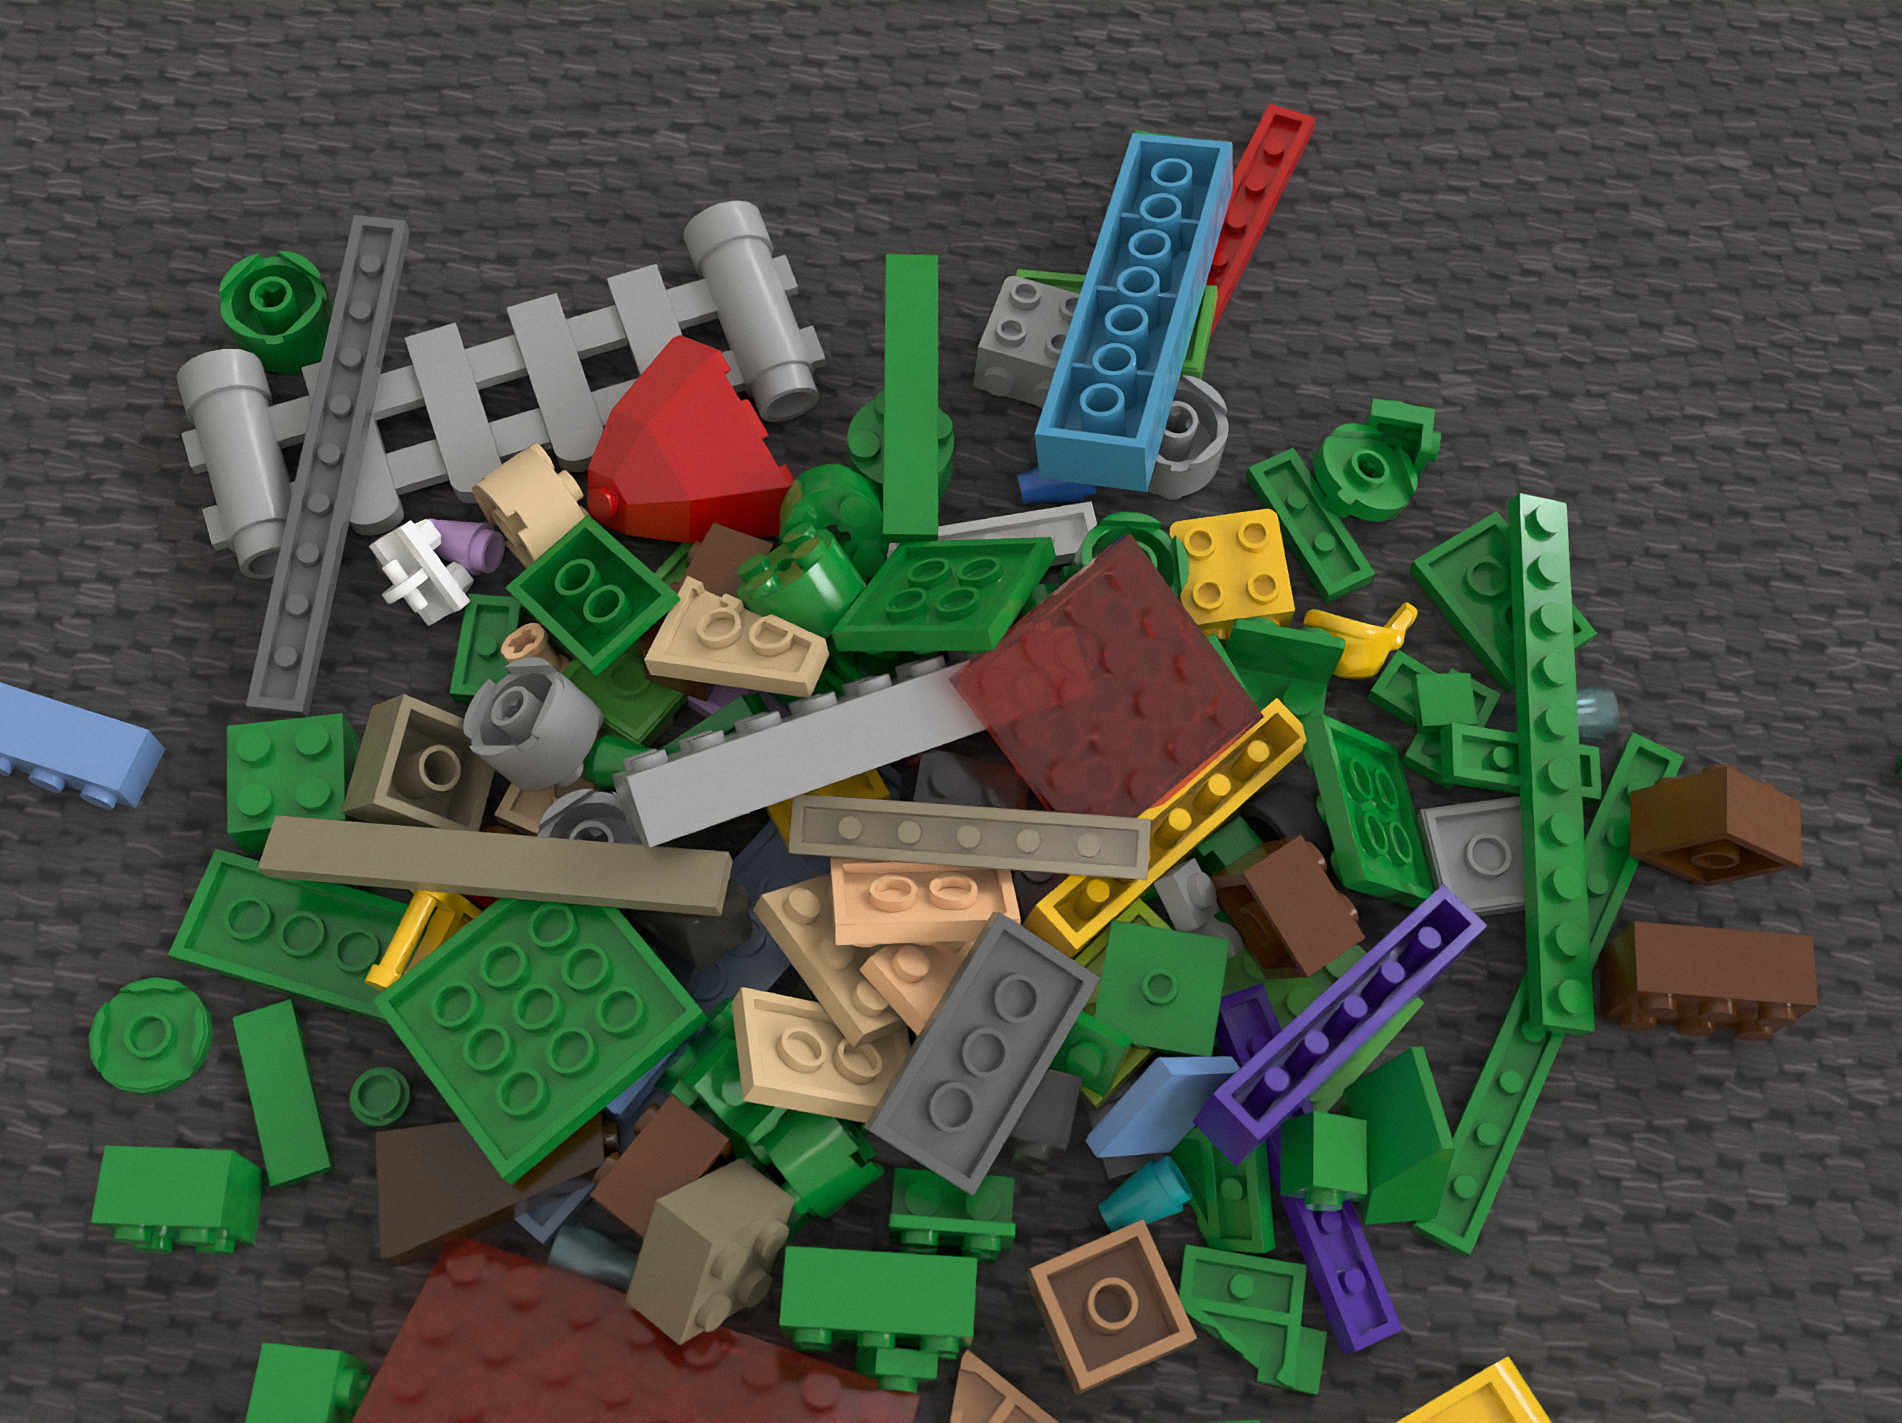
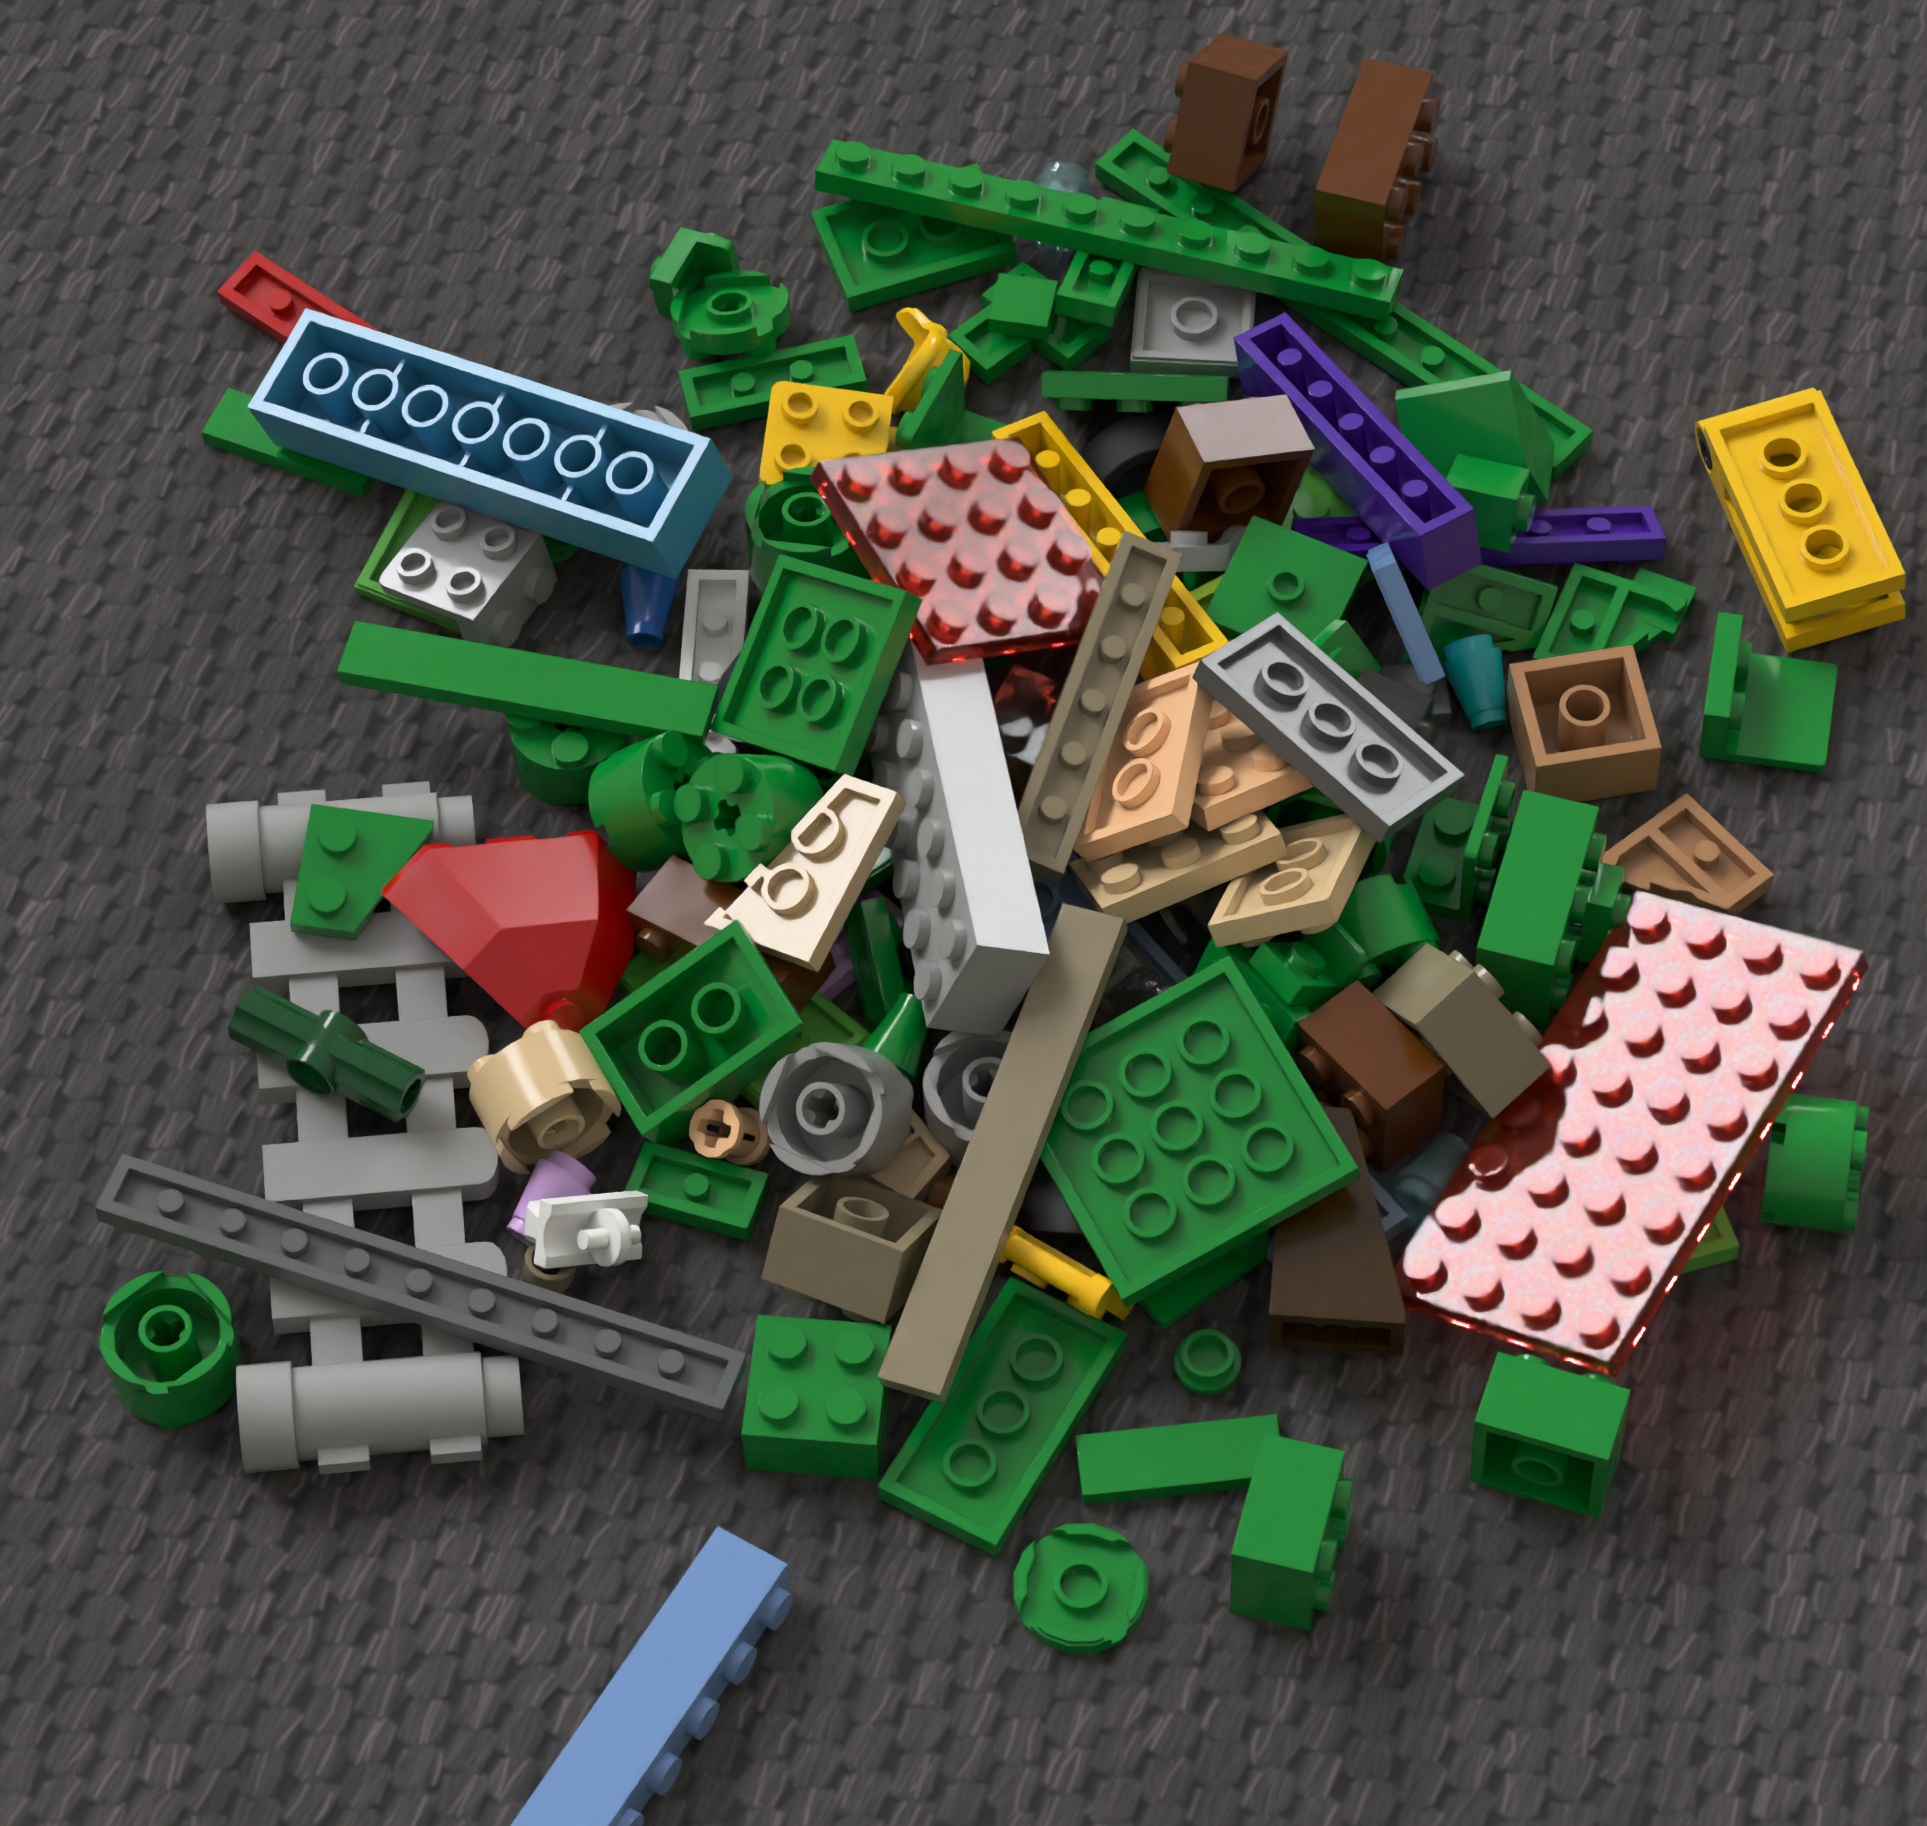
camera: 70 degrees left, 10 degrees down
(530, 340) = (327, 1053): none -> dark green piece
(709, 309) = (347, 864): none -> green wing

